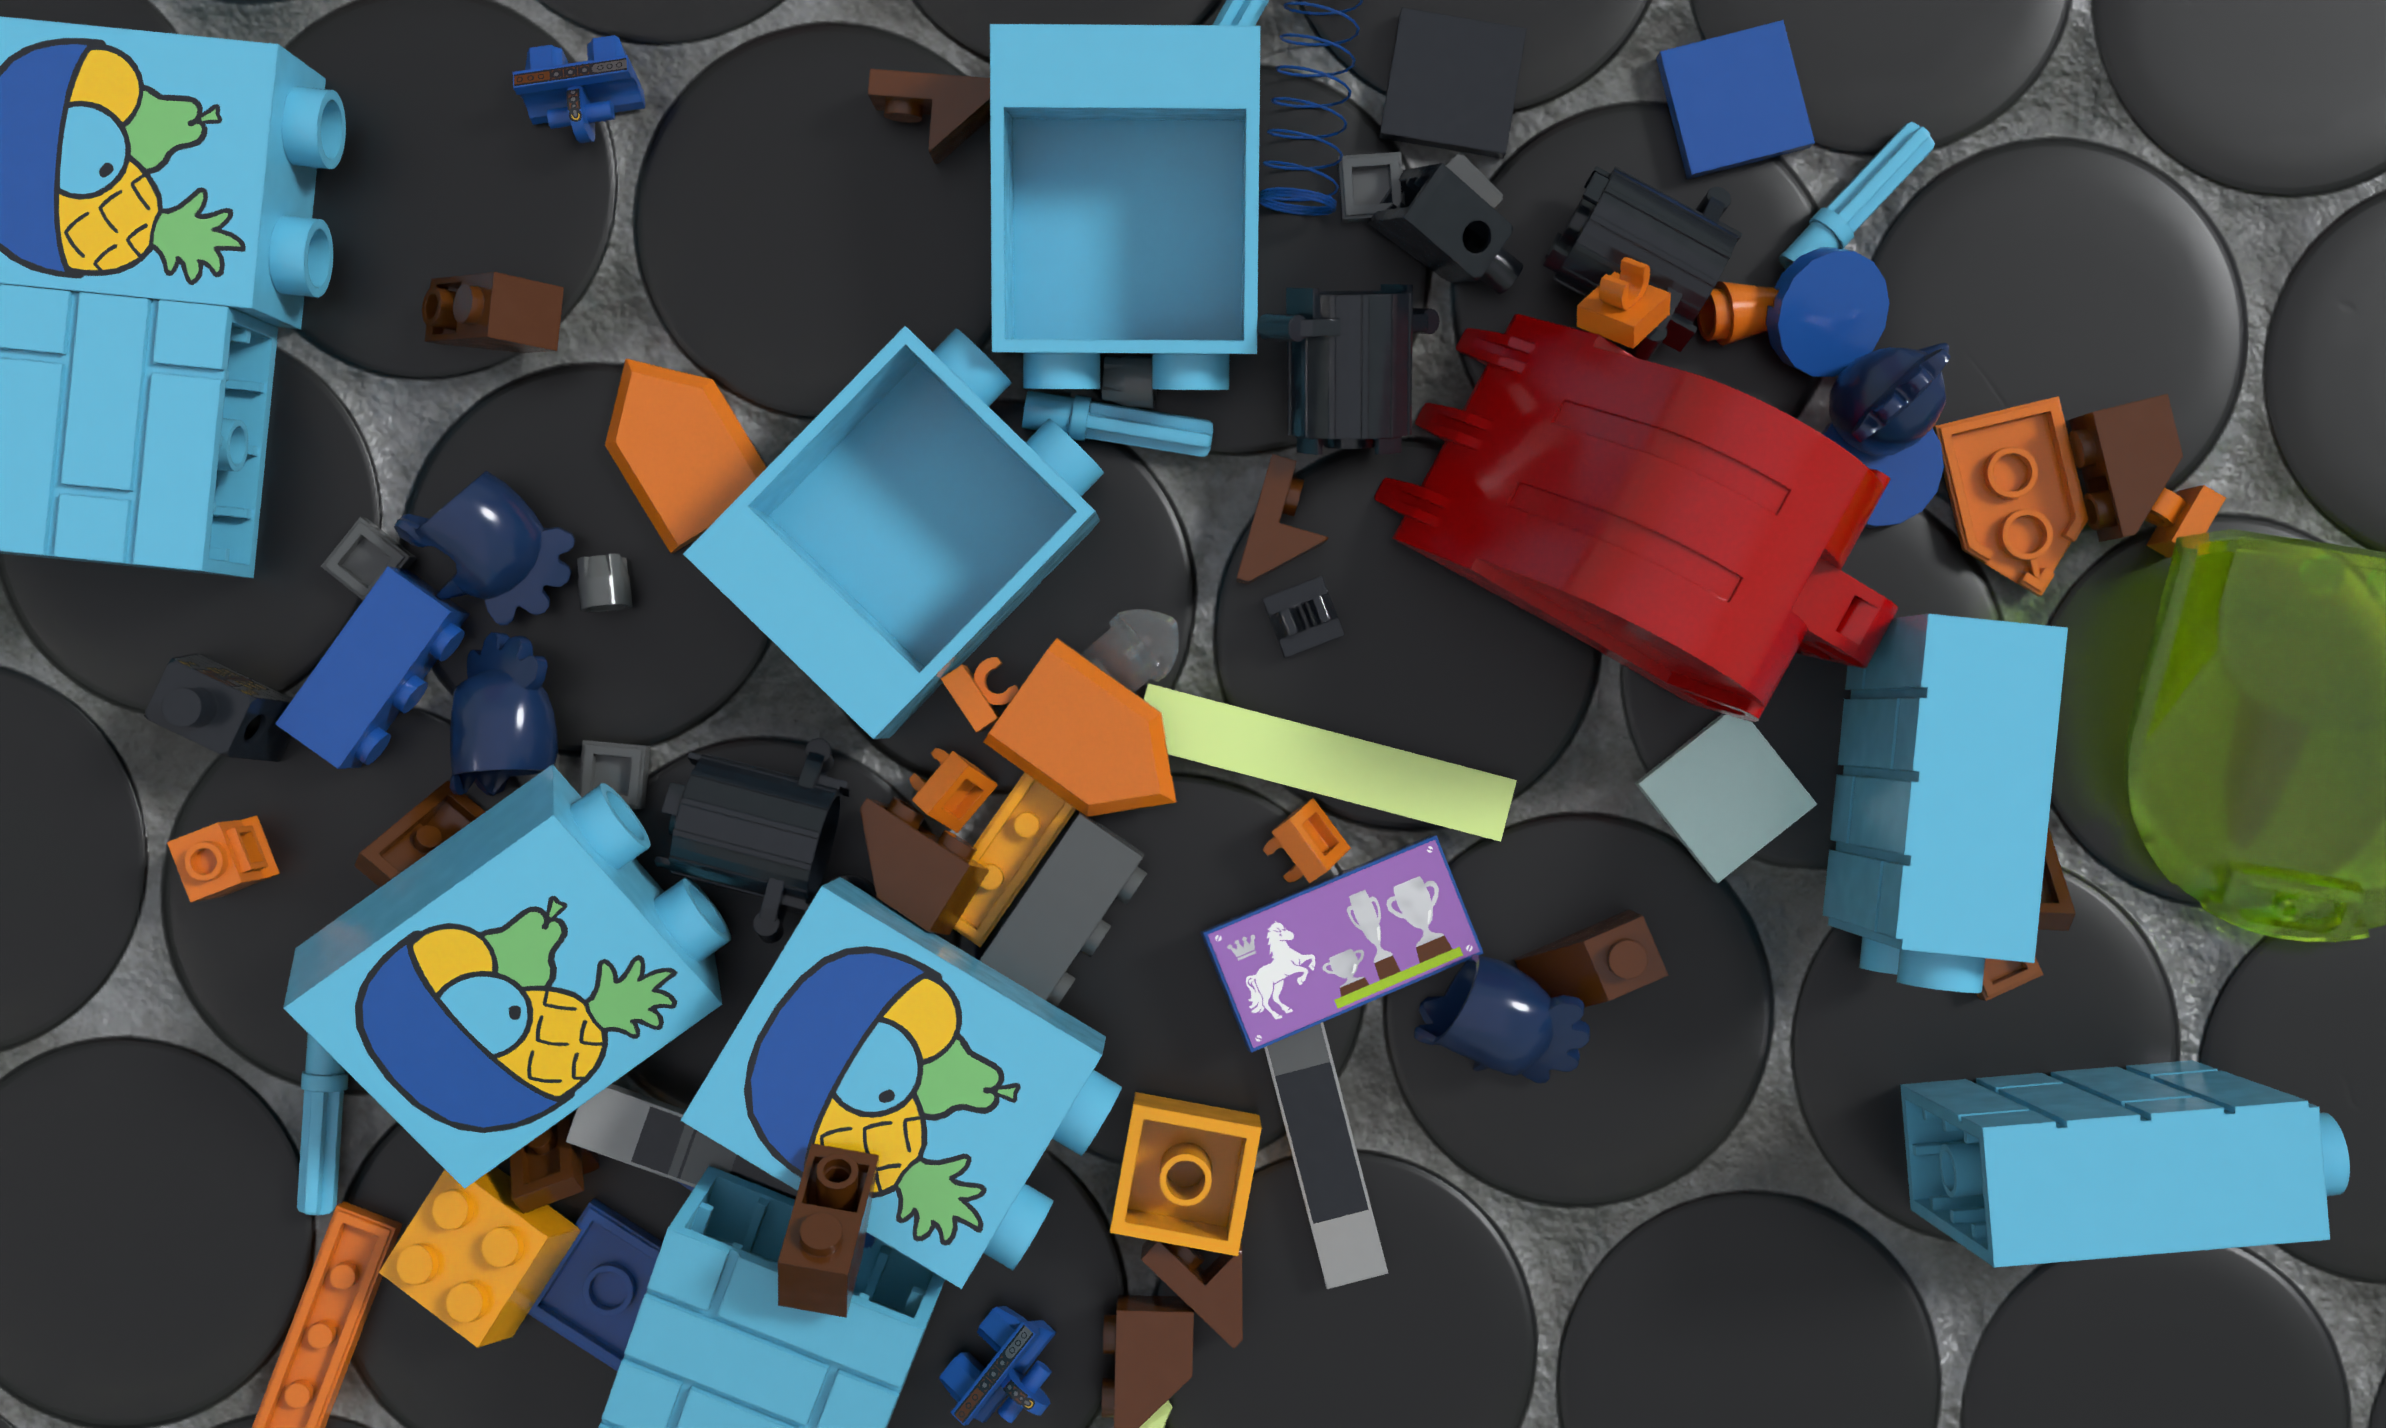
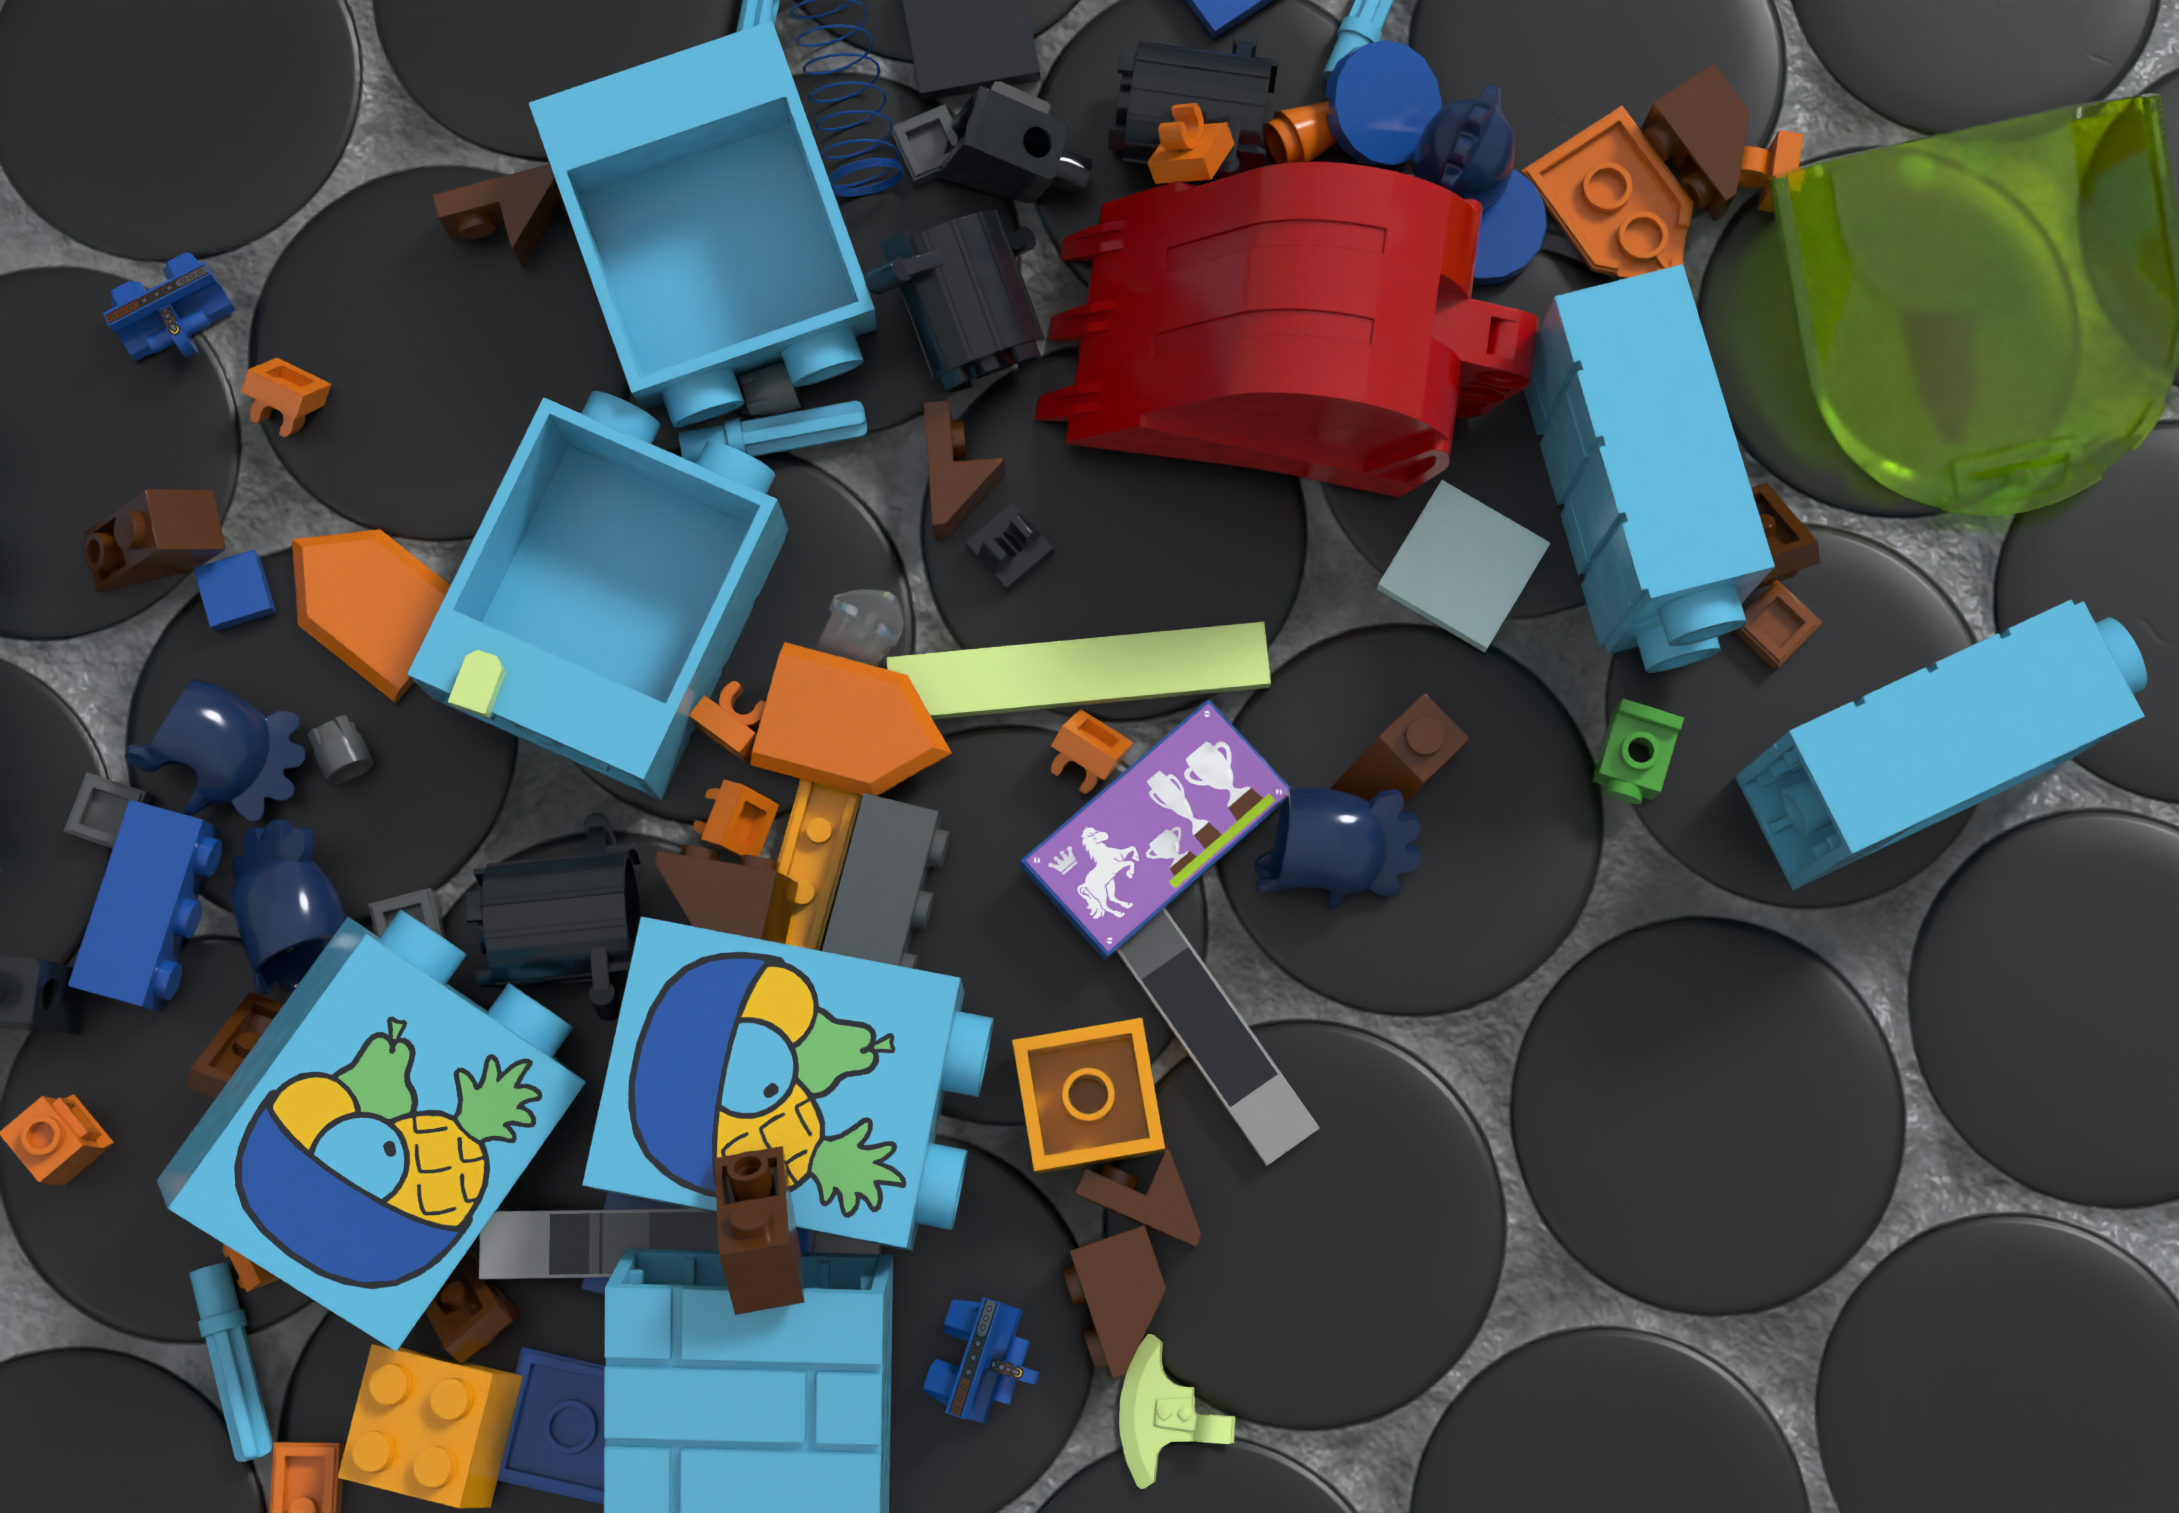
camera: 15 degrees left, 10 degrees down
(555, 389) = (234, 590): none -> blue tile
(665, 210) = (285, 389): none -> orange tile
(747, 590) = (478, 683): none -> yellowish green piece
(1813, 1011) = (1641, 725): none -> bright green brick

